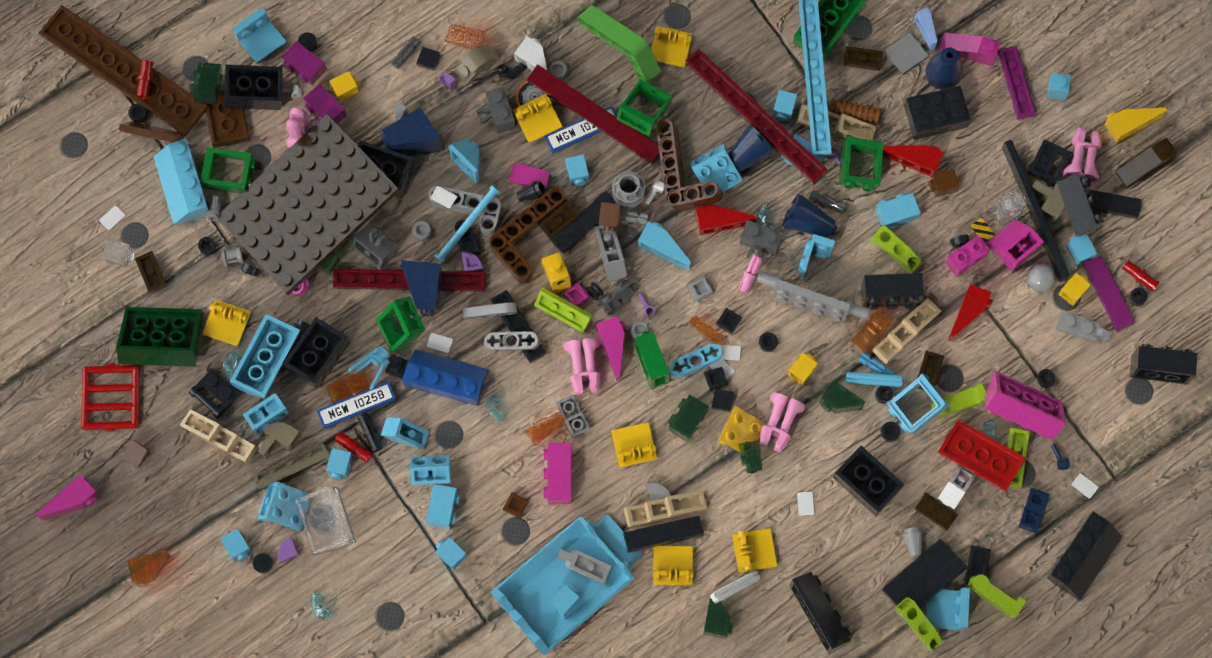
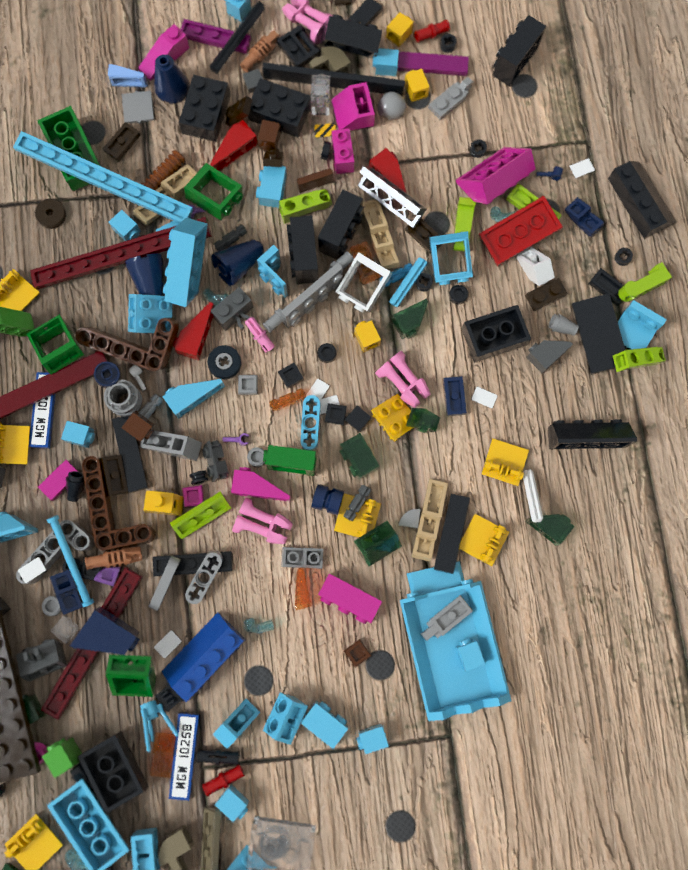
camera: 65 degrees left, 5 degrees up
(308, 305) = (62, 756): none -> bright green brick
(408, 251) = (65, 629): none -> clear tile
(439, 235) = (66, 592): none -> dark blue slope
(488, 258) = (113, 558): none -> nougat hinge
(619, 472) = (377, 543): none -> clear green brick
(635, 410) = (327, 499): none -> dark blue wheel
(641, 164) = (106, 373): none -> dark blue wheel
(645, 437) = (357, 503): none -> dark grey axle
(716, 251) = (221, 353): none -> black bush
(755, 41) = (54, 220): none -> dark brown piece
(775, 174) = (185, 261): none -> medium azure brick
(790, 474) = (454, 396): none -> dark blue plate
(849, 270) = (302, 249): none -> black brick
(868, 338) = (361, 259): none -> white window
(878, 539) = (546, 353): none -> dark grey slope
(922, 198) = (273, 158): none -> dark brown plate
(925, 246) = (315, 180): none -> reddish brown tile
(946, 320) = (393, 192): none -> fence
(949, 143) = (238, 111): none -> dark brown plate
(976, 176) = (280, 105): none -> black brick
(992, 140) = (251, 79): none -> dark grey tile
(1014, 572) = (626, 251): none -> black bush
(1024, 103) = (237, 37): none -> black axle
(1024, 130) = (260, 51): none -> nougat hinge
(1123, 245) = (399, 29): none -> yellow brick

